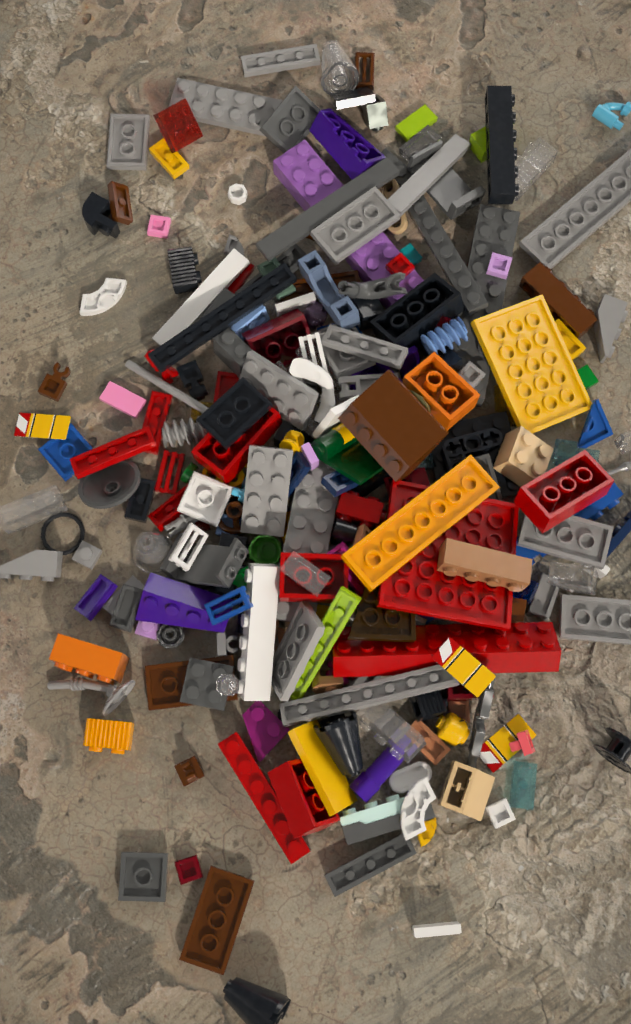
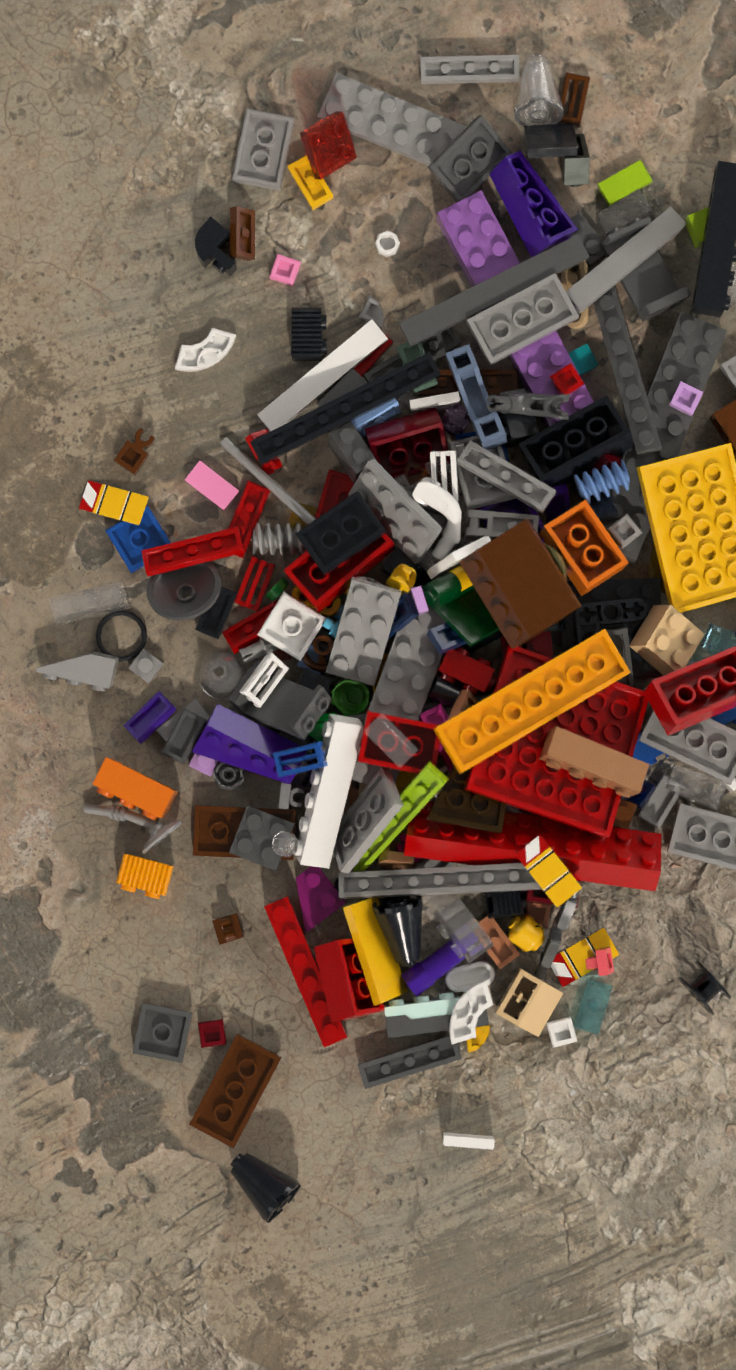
camera: 10 degrees right, 10 degrees up
(191, 376) = (295, 470): black plate -> none

